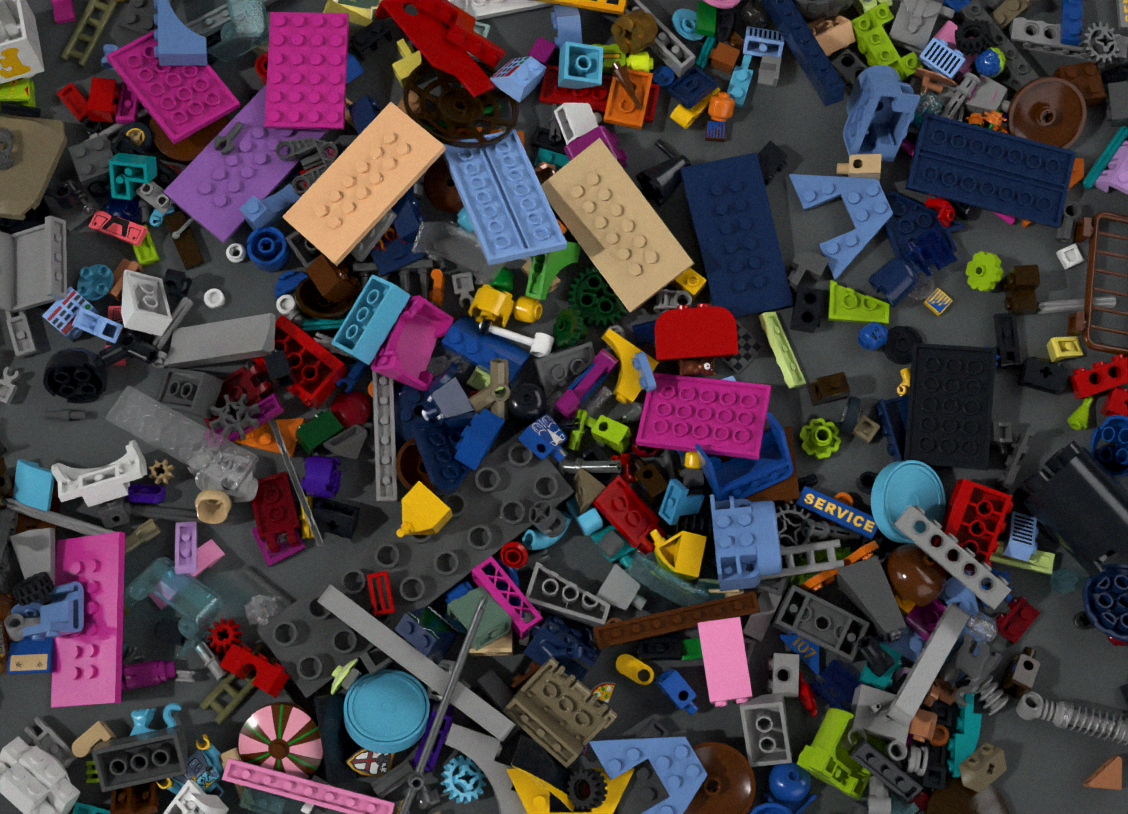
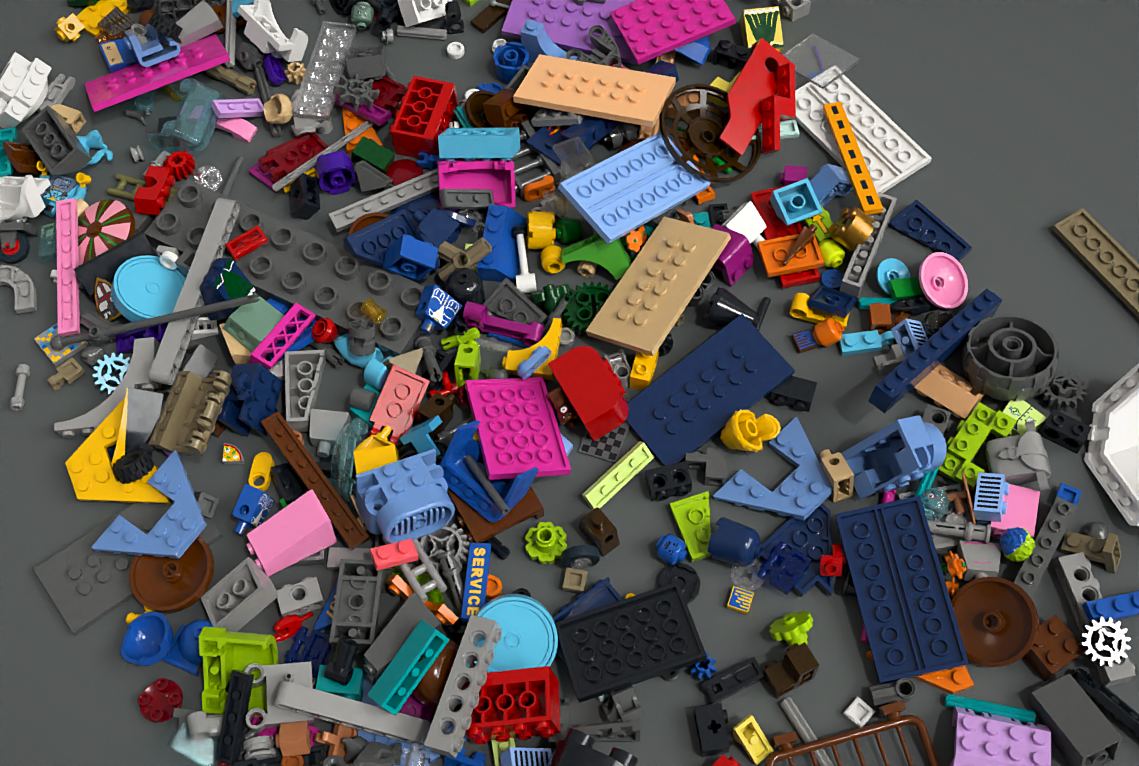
camera: 70 degrees right, 15 degrees down
(123, 374) = (362, 15): none -> sand green head
(147, 674) = (126, 123): magenta piece -> none
(222, 341) = (414, 59): light grey arch -> none
(280, 369) = (401, 93): black brick -> none
(340, 673) = (166, 241): yellowish green dish -> none
(361, 680) = (168, 260): none -> white tile
(422, 512) = (324, 237): yellow piece -> none
(428, 359) = (466, 198): none -> dark grey tile
(519, 77) = (760, 170): light blue slope -> none
(526, 496) = (373, 310): none -> clear yellow bush
(593, 333) = (555, 314): none -> dark grey bar
(758, 464) = (487, 485): none -> dark grey piece
(791, 221) = (747, 432): none -> yellow head
(791, 573) = (394, 554): none -> coral plate
(913, 597) = (404, 670): none -> teal brick
(970, 29) = (1030, 513): black tyre -> none

